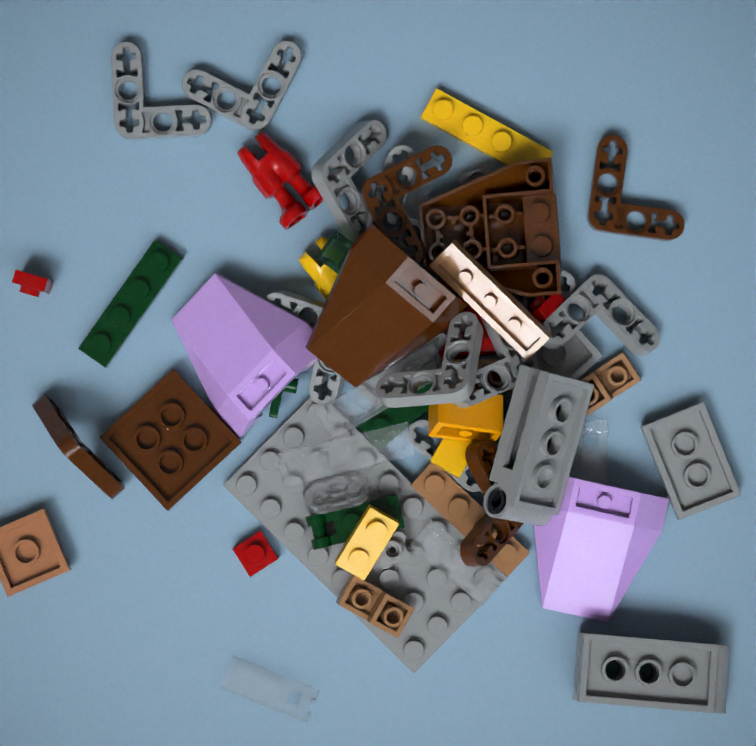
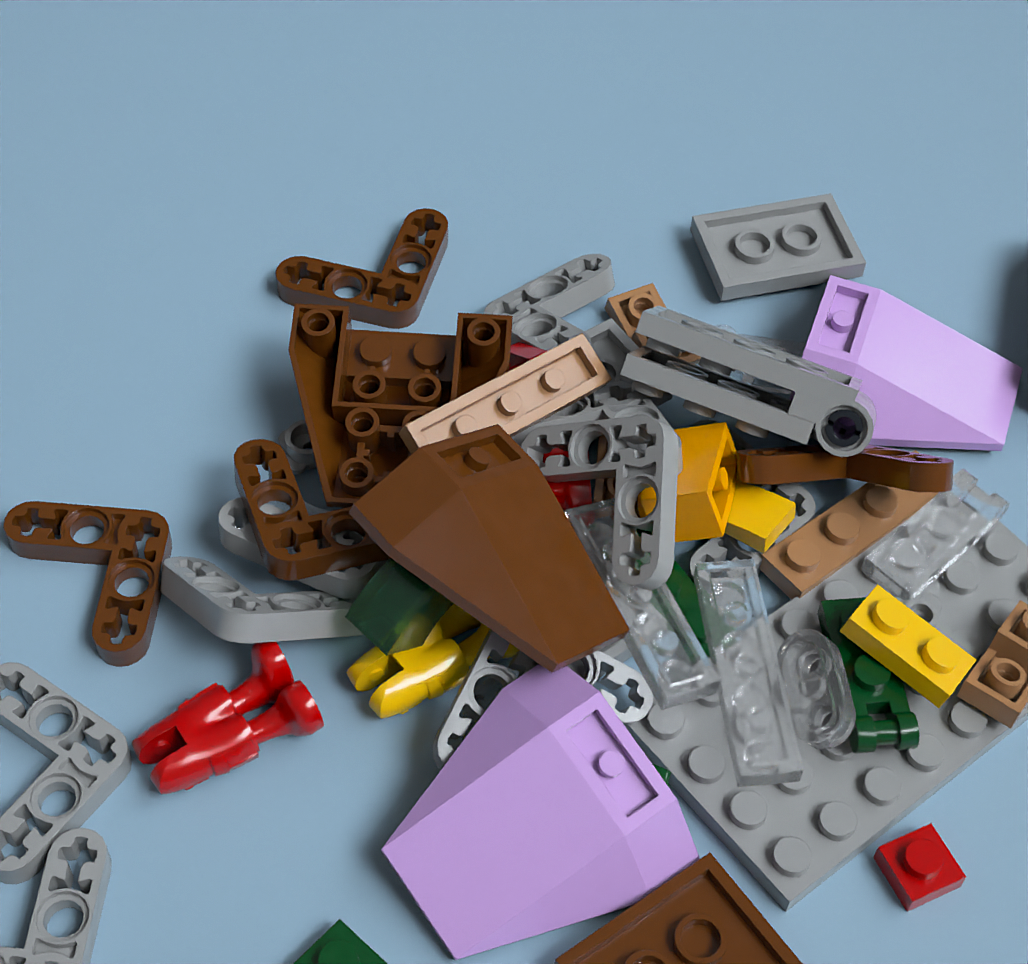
camera: 85 degrees left, 35 degrees down
(388, 88) = (116, 550): none -> reddish brown beam
(480, 130) = (208, 448): yellow plate -> none

